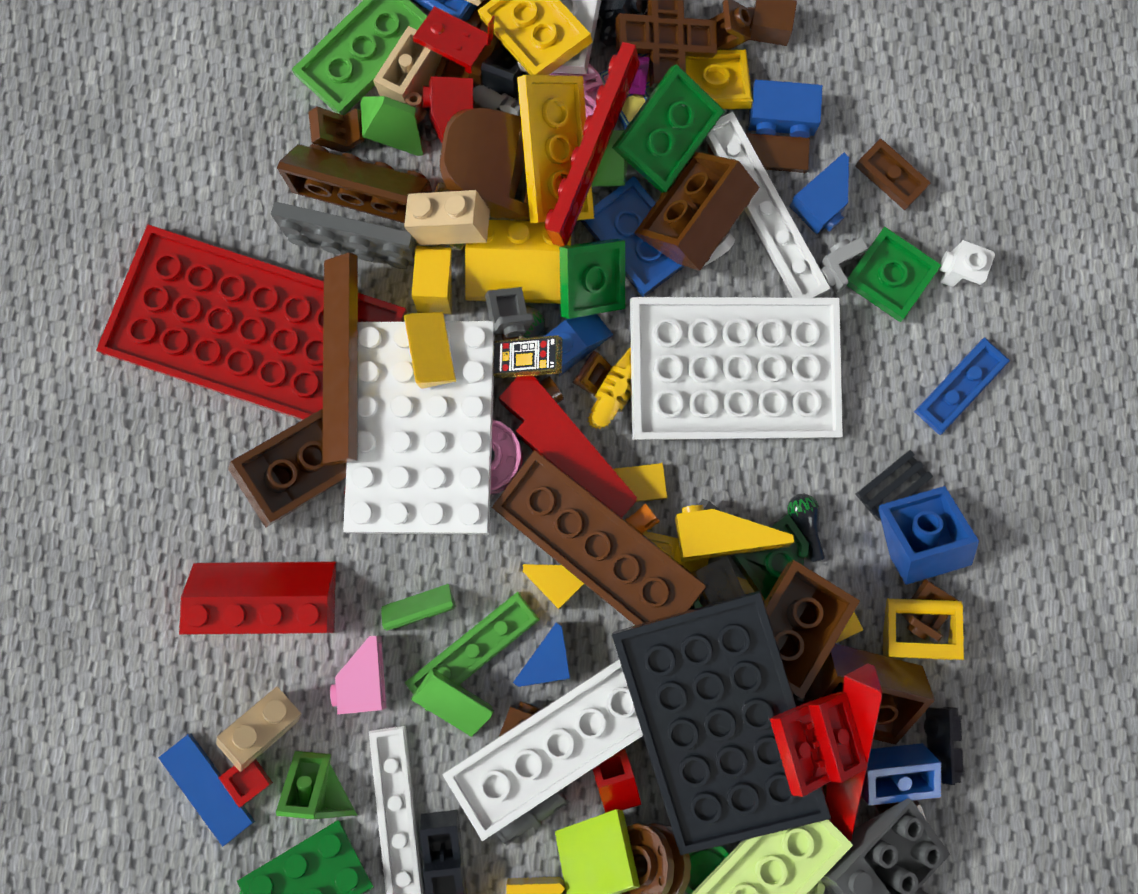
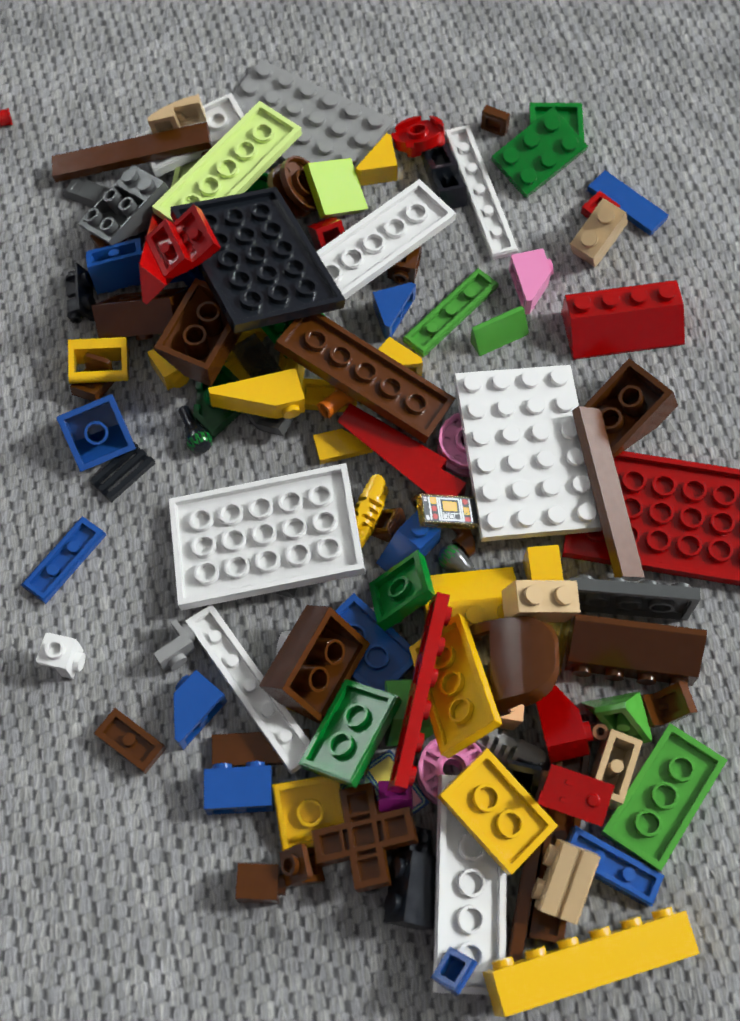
camera: 175 degrees right, 15 degrees down
(313, 789) = (549, 206): bright green slope -> none
(429, 349) = (532, 500): yellow slope -> none
(452, 703) = (458, 273): bright green slope -> none
(508, 312) = (470, 547): dark grey bracket -> none
(892, 274) = (127, 645): green plate -> none

